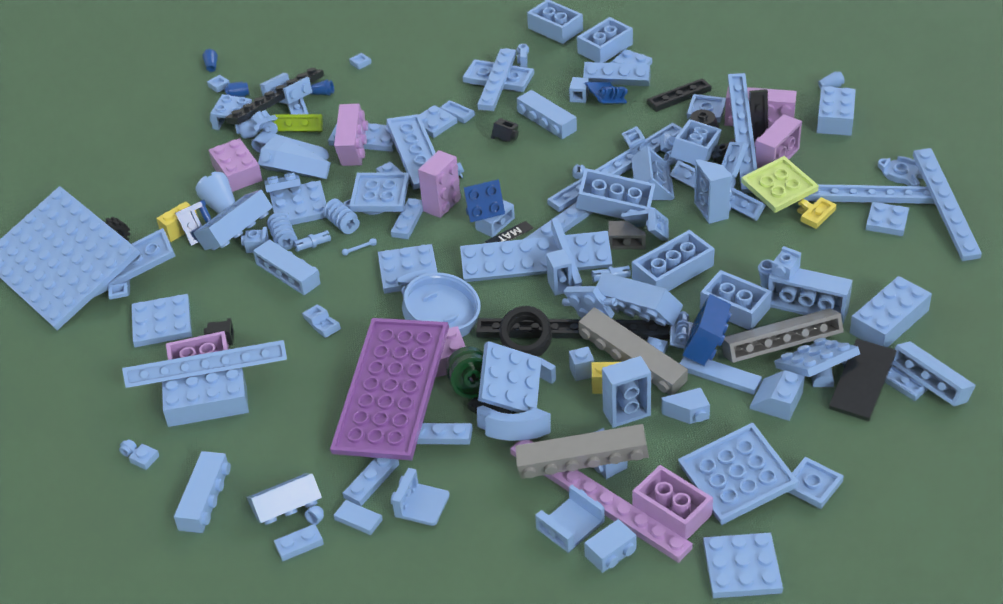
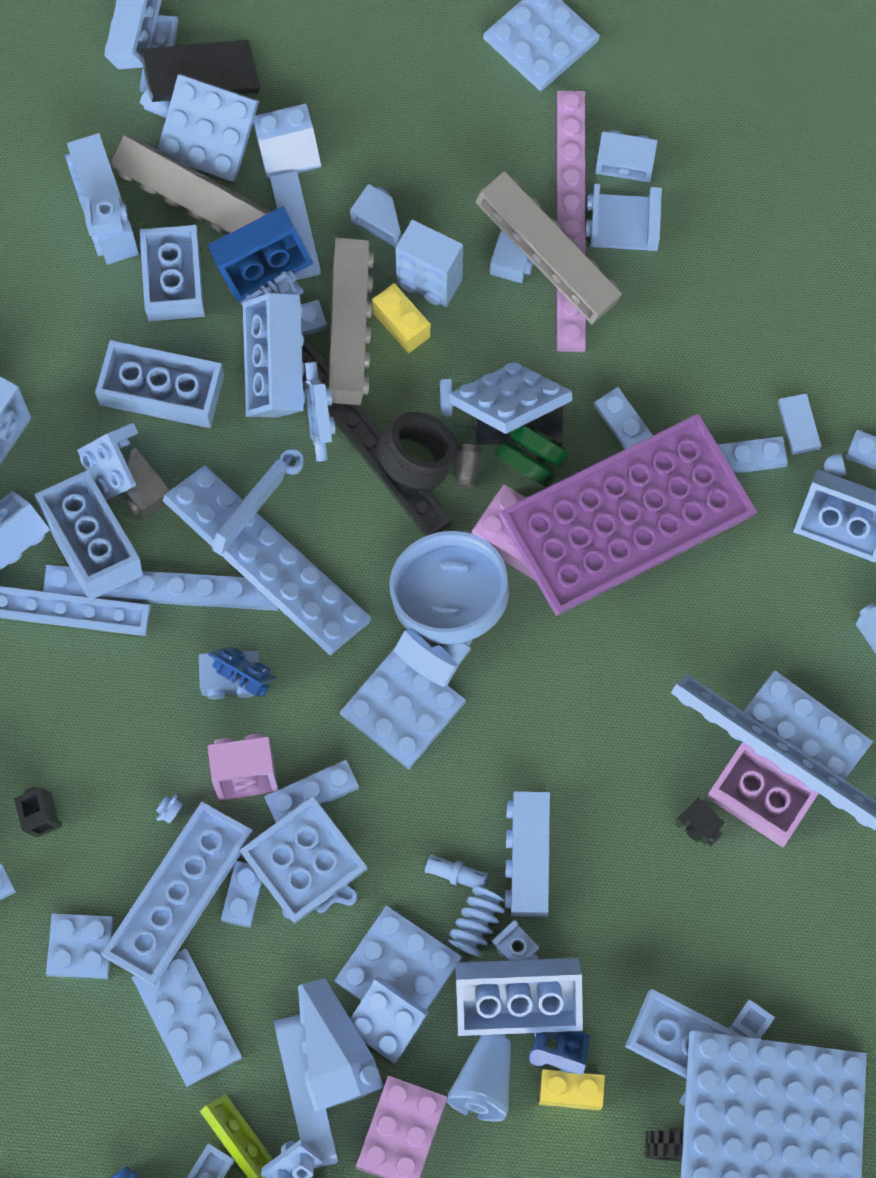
camera: 135 degrees left, 30 degrees up
(161, 320) = (737, 930): light blue plate -> none
(320, 321) = (576, 727): light blue slope -> none
(341, 216) = (385, 873): light blue piece -> none
(350, 134) = (229, 995): lavender brick -> none
(372, 242) = (389, 800): light blue hinge -> none
(418, 501) = (730, 375): light blue bracket -> none
(462, 113) = (32, 933): light blue tile -> none
(511, 233) = (226, 637): black sticker -> none
(514, 427) = (573, 366): light blue arch -> none
(559, 271) = (283, 496): light blue brick -> none
(578, 171) = (49, 653): light blue hinge -> none
(581, 363) = (406, 365): light blue brick -> none
(619, 271) = (225, 452): light blue pin -> none
(673, 502) = (530, 132): lavender brick -> none
(738, 472) = (435, 105): light blue plate -> none
(765, 270) = (95, 269): light blue cone -> none
(815, 482) = (385, 36): light blue plate -> none
(890, 312) = (62, 106): light blue brick -> none

